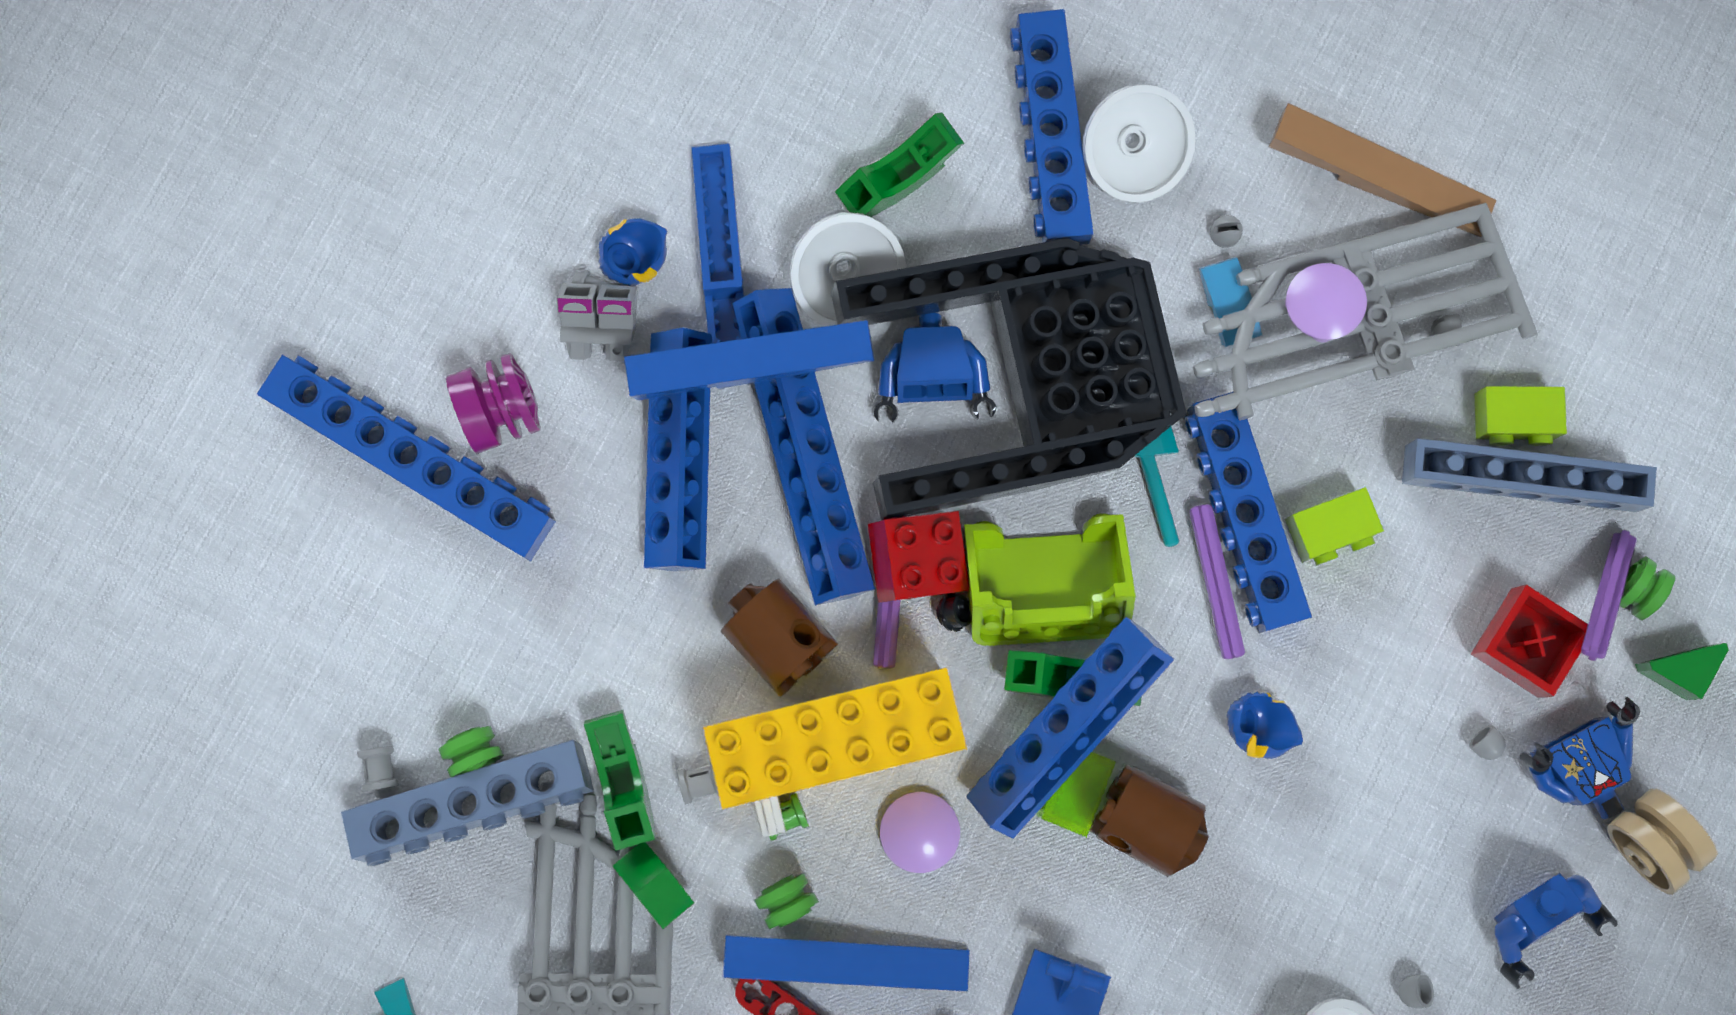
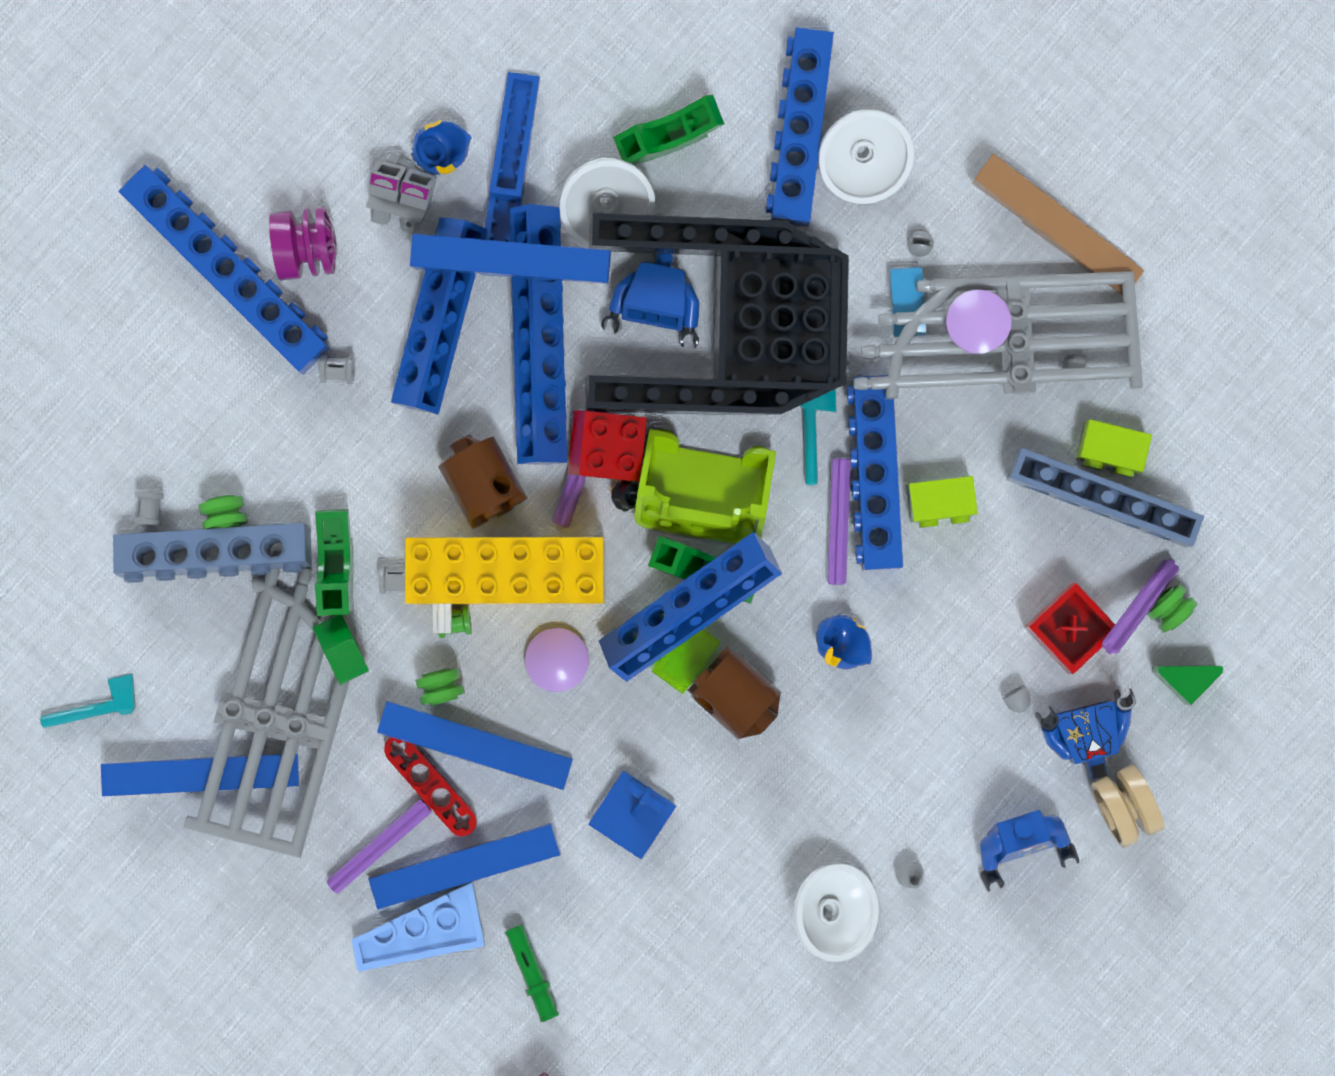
camera: 20 degrees right, 5 degrees up
(569, 544) = (337, 369): none -> light grey bush

